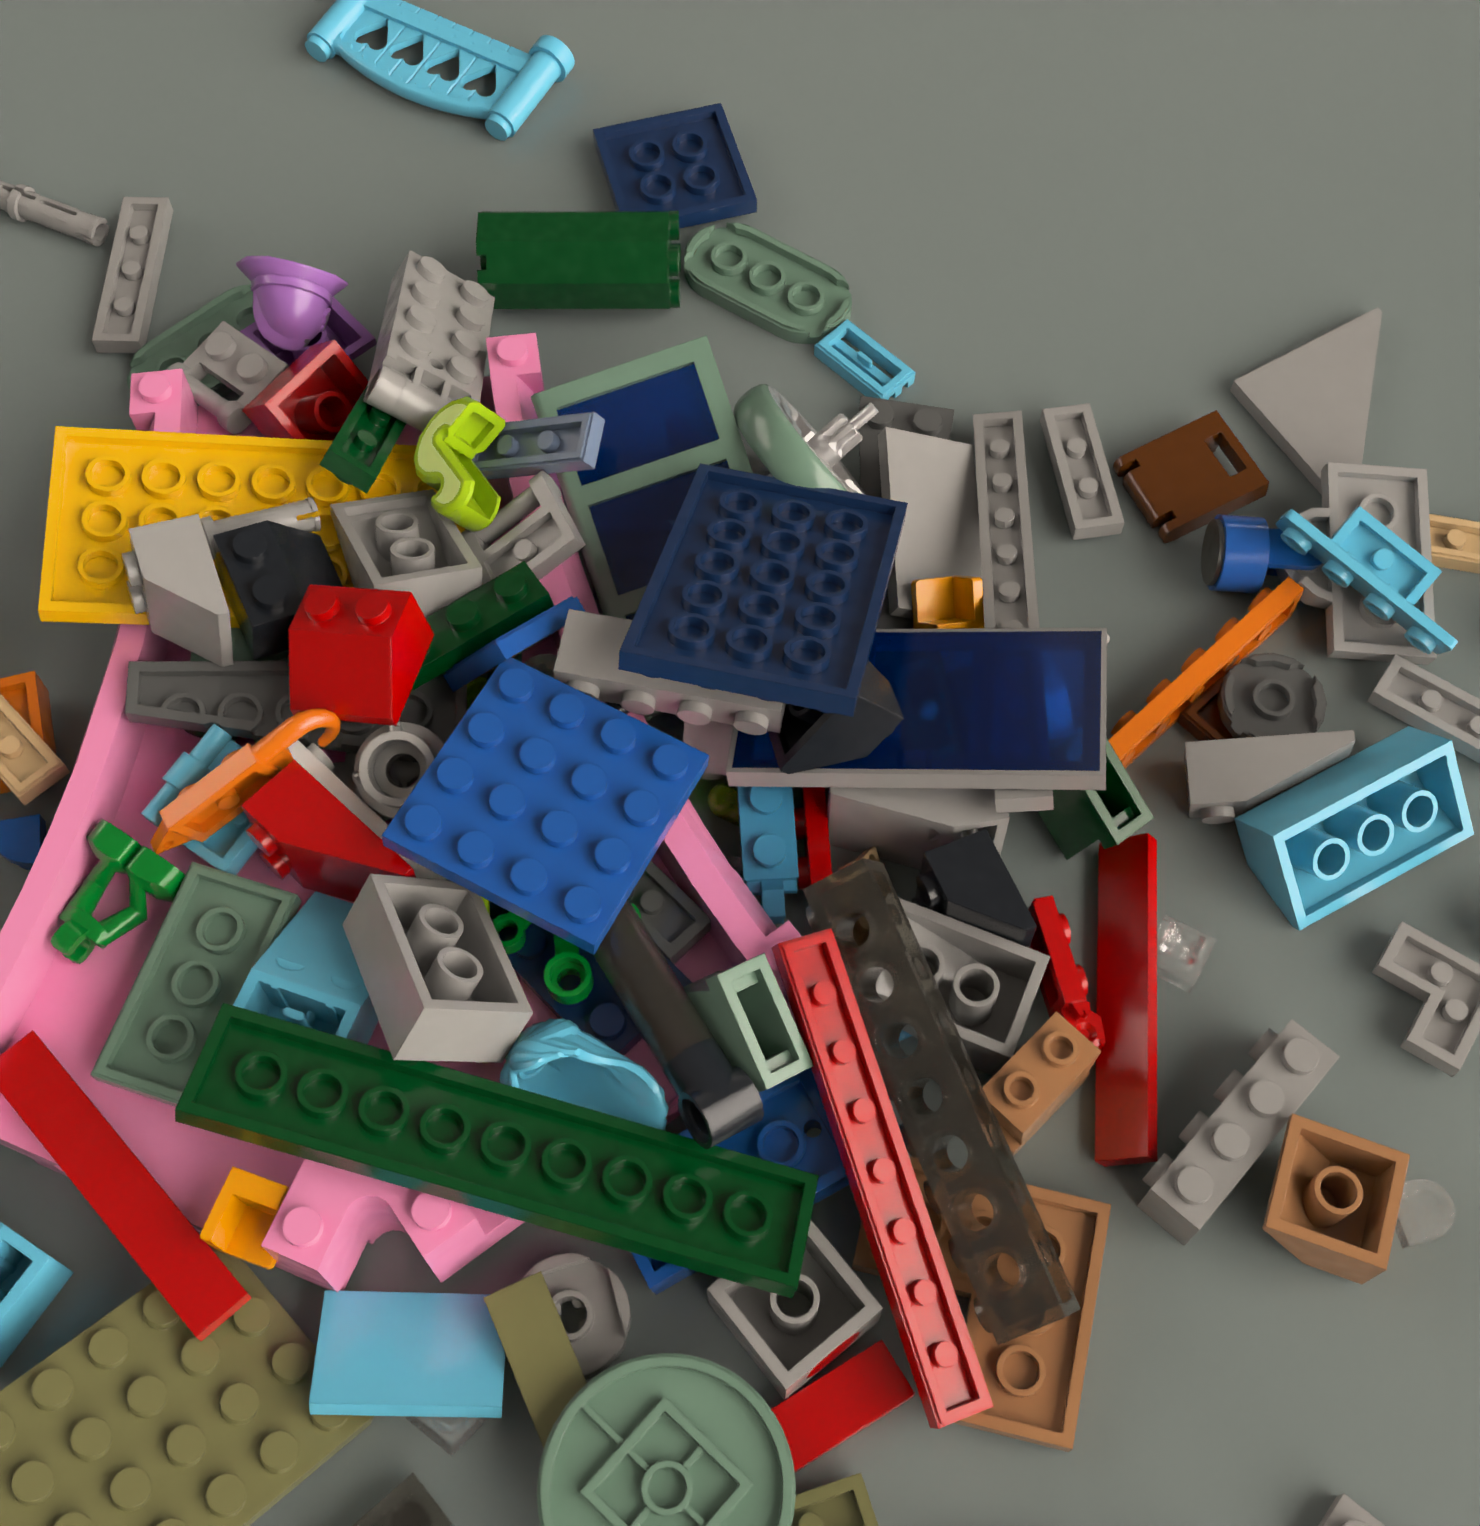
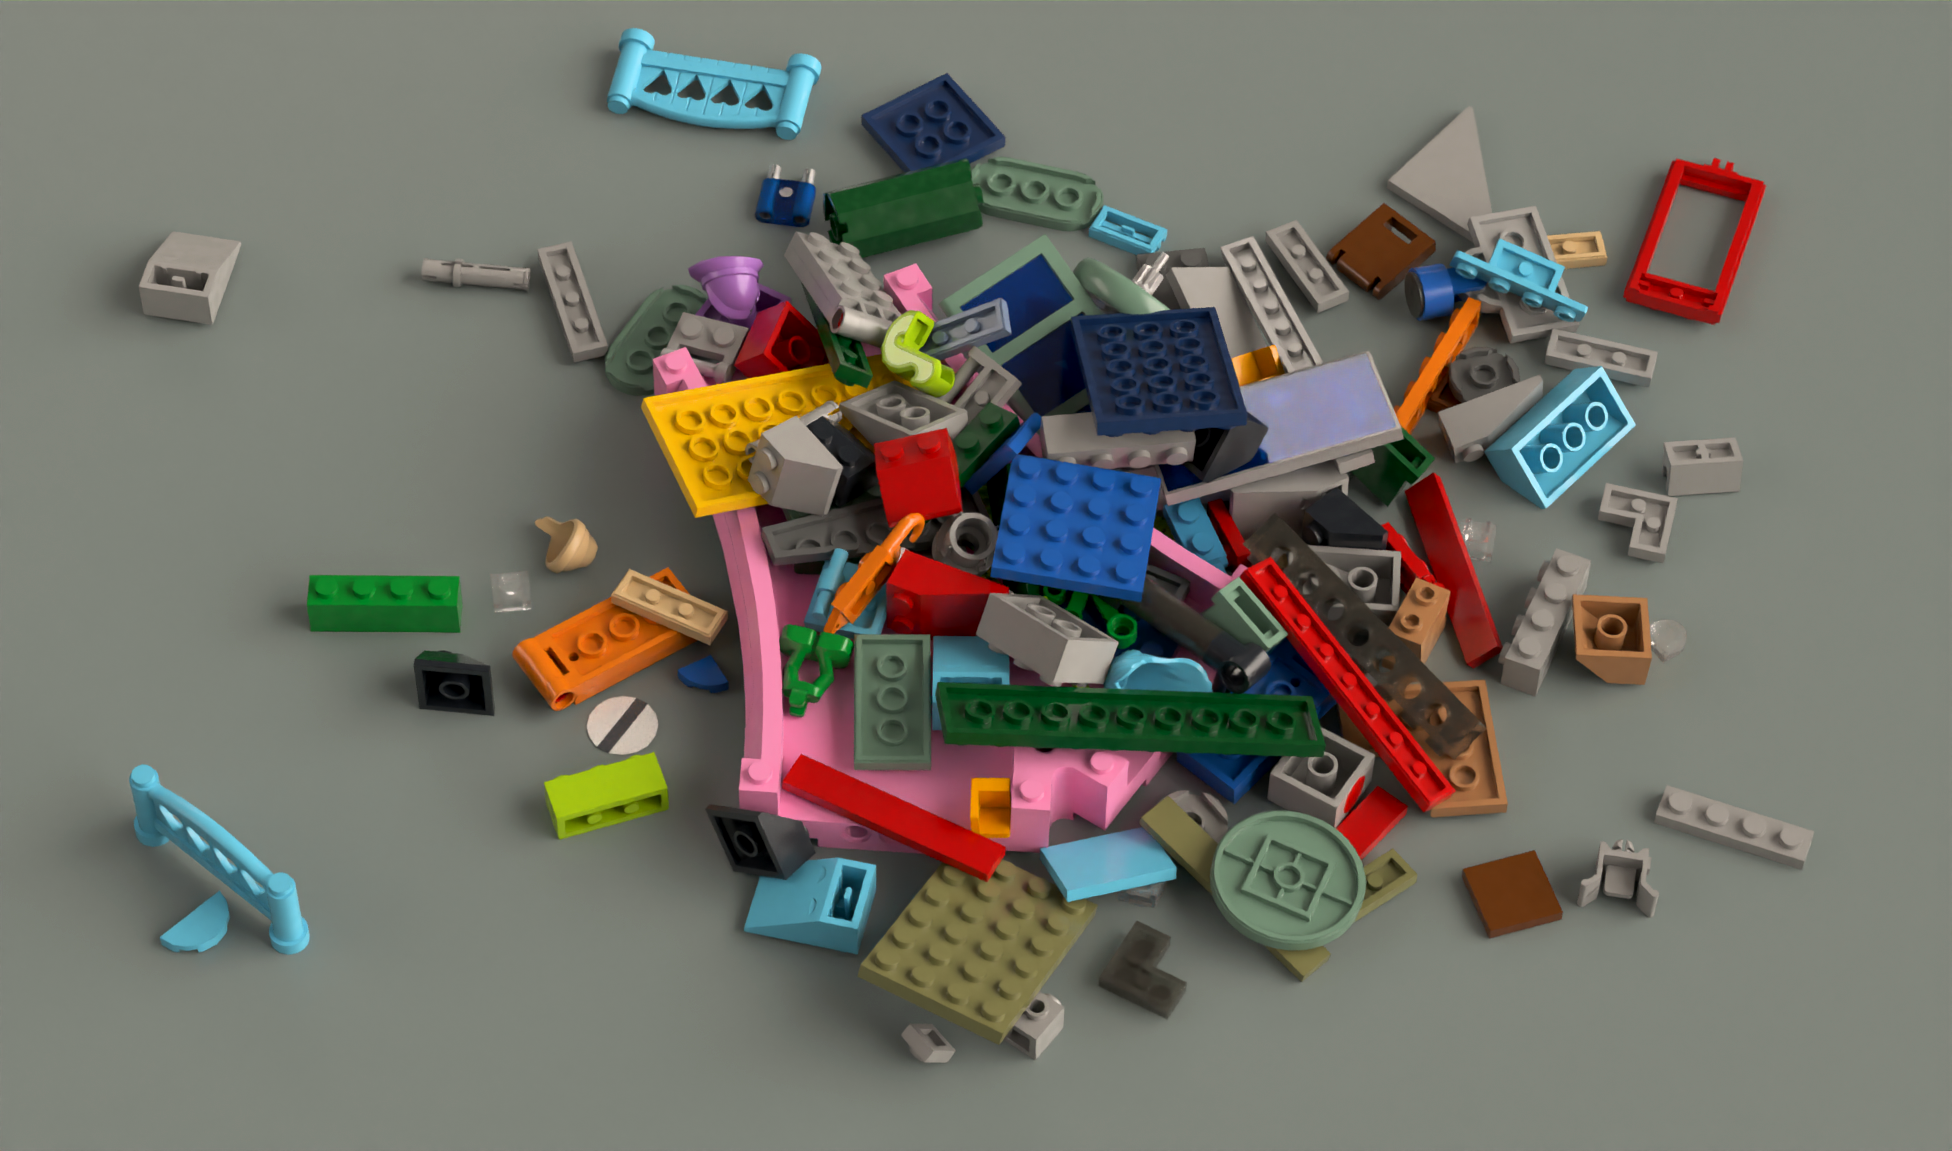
camera: 20 degrees left, 10 degrees down
(451, 210) = (786, 200): none -> clear blue piece

